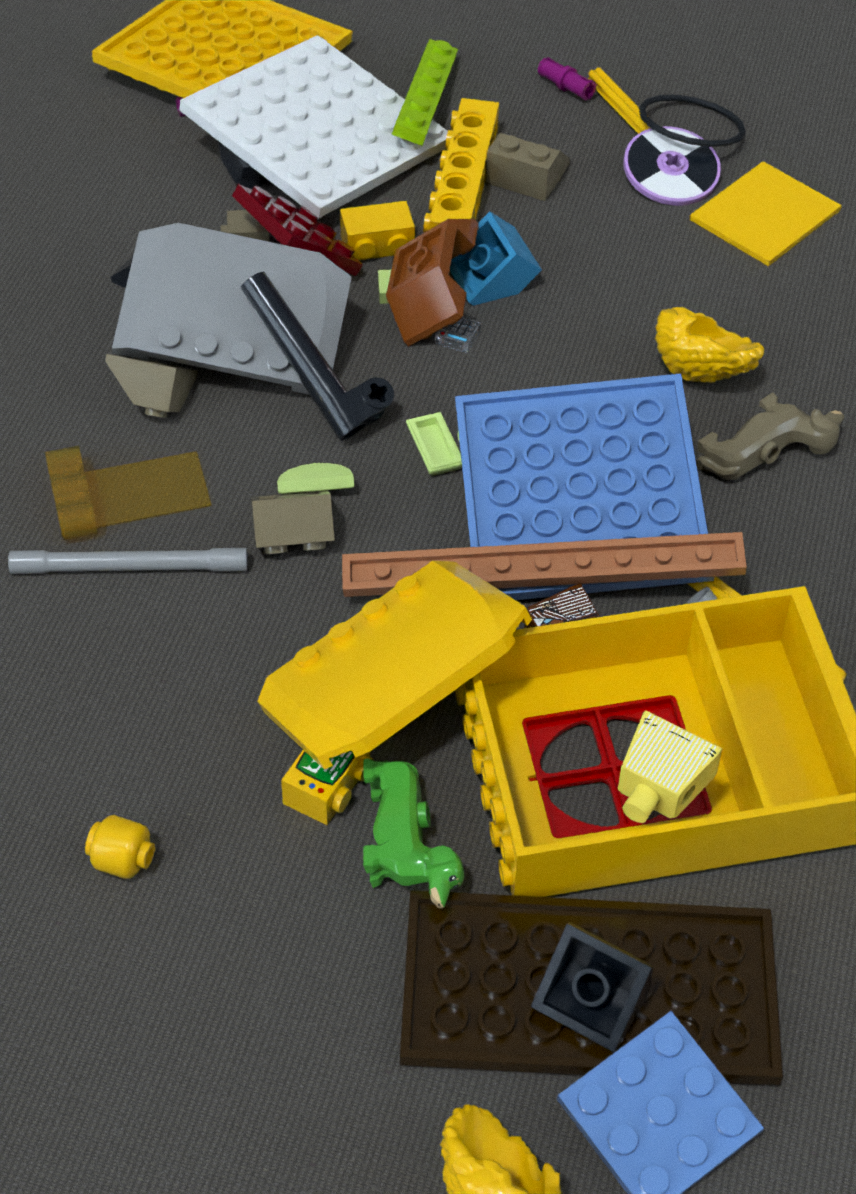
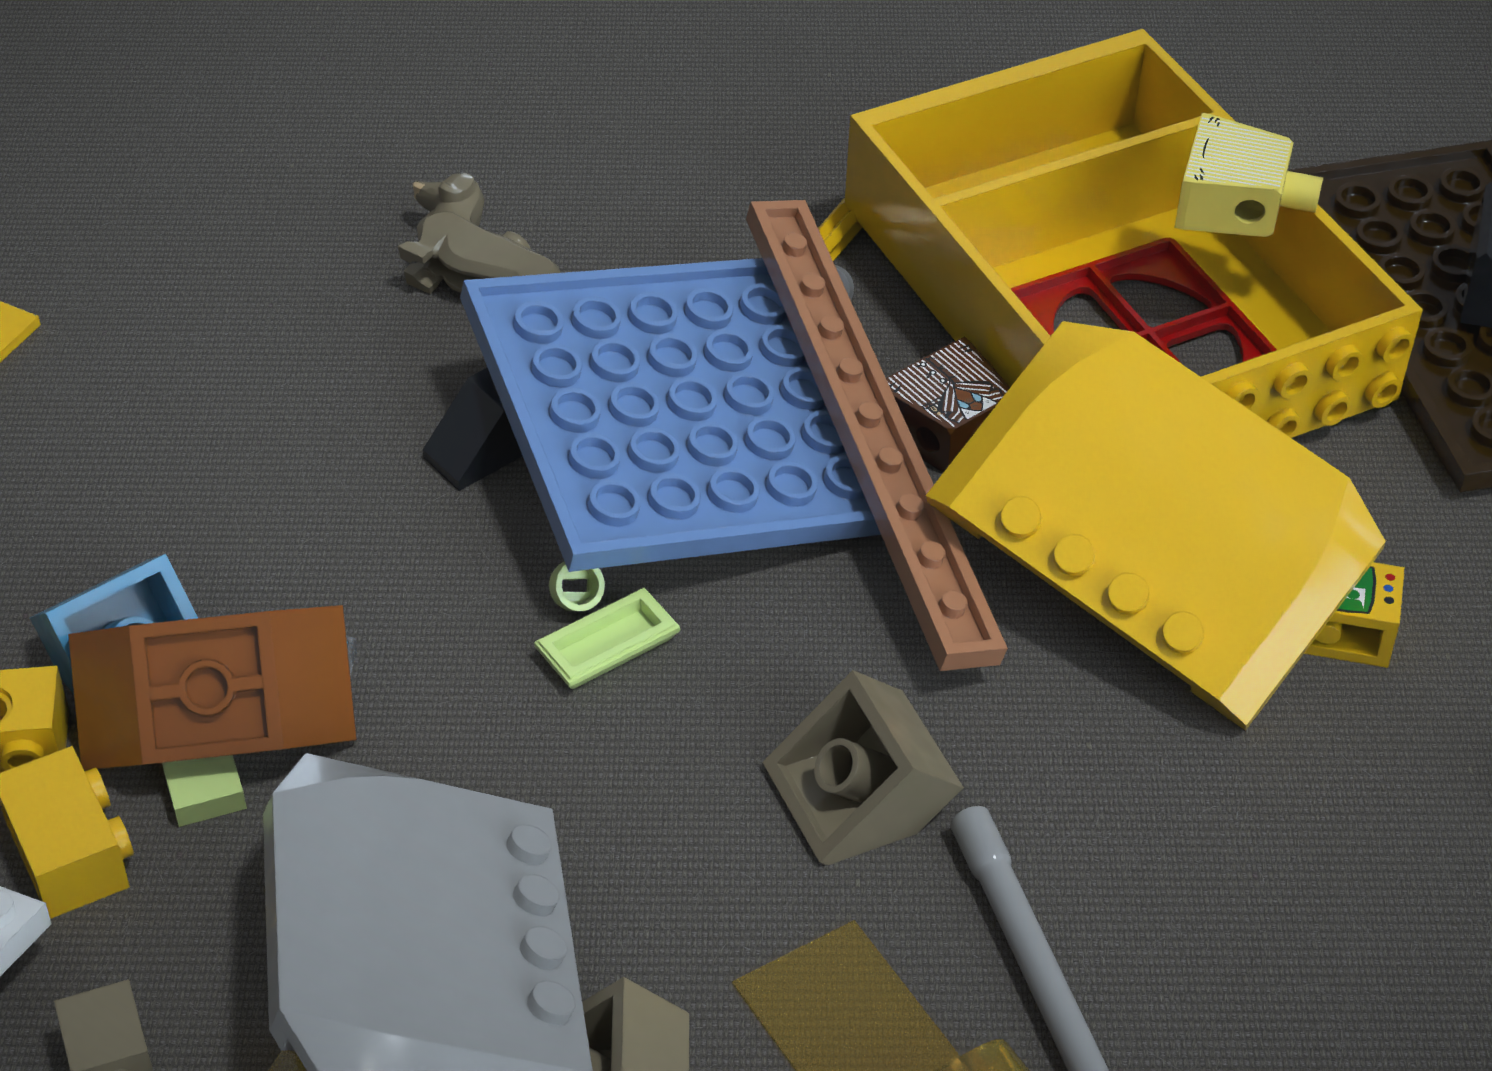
camera: 105 degrees left, 5 degrees down
(296, 227) = (136, 912): dark red plate -> none
(315, 478) = (753, 766): yellowish green tile -> none
(343, 409) = (568, 750): black axle -> none
(400, 834) = (1427, 482): bright green animal -> none
(701, 348) = (319, 324): yellow hair -> none

